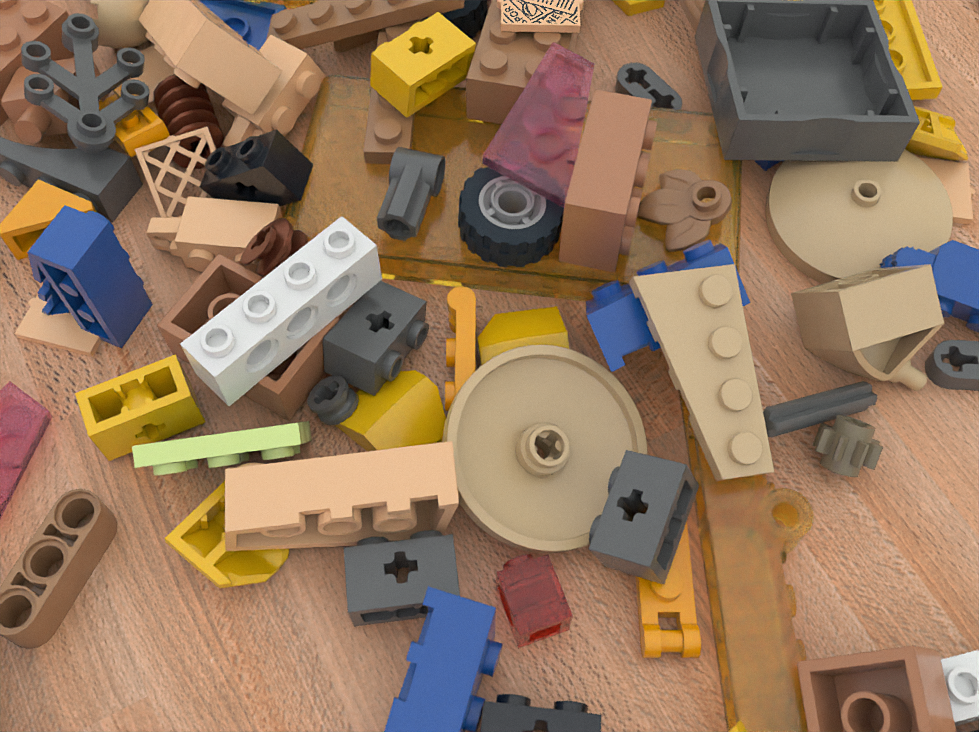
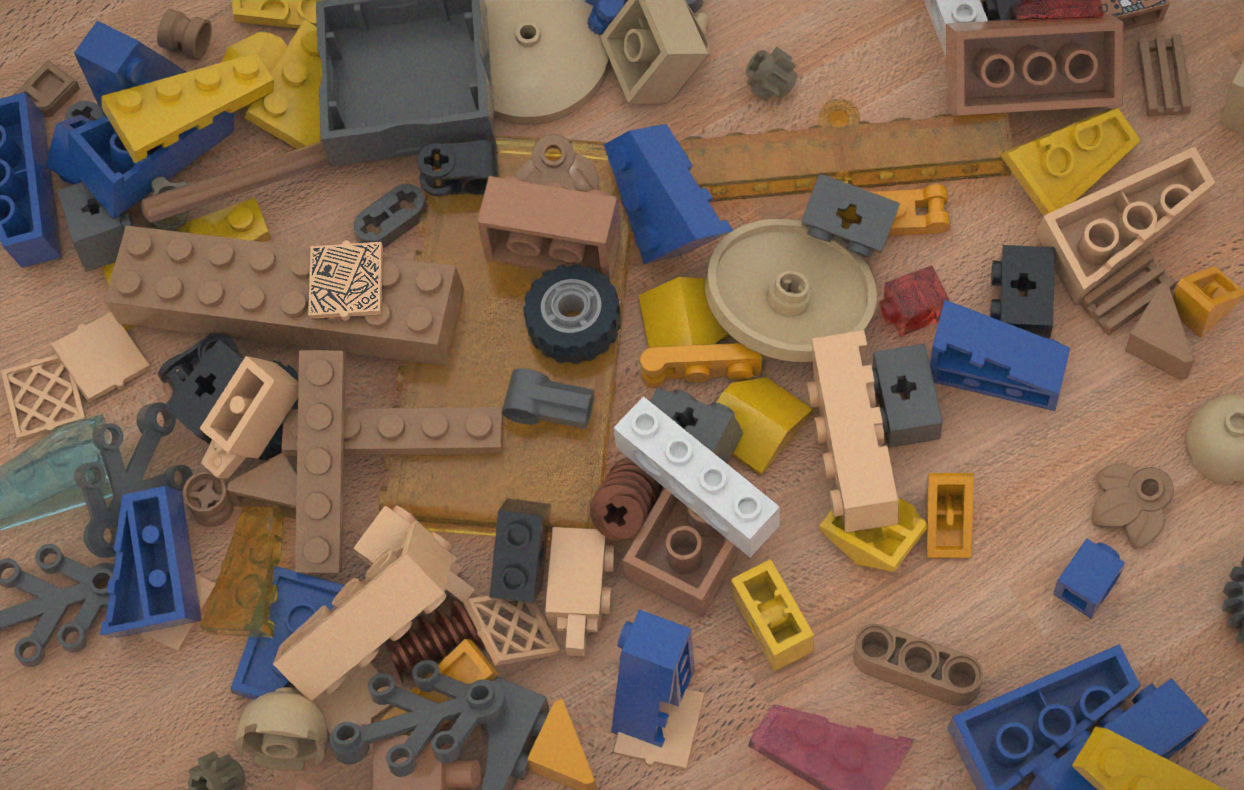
camera: 85 degrees left, 5 degrees up
(222, 448) = (807, 533): yellowish green plate -> none
(238, 620) = (949, 515): none -> light orange slope
(333, 400) = (761, 466): dark grey bush -> none
(421, 64) = (411, 389): yellow brick -> none
(545, 126) = (504, 273): clear pink wing -> none
(688, 117) = (462, 165): none -> black piece
(710, 360) = (714, 154): tan wing -> none
(818, 408) = (742, 91): dark grey axle -> none

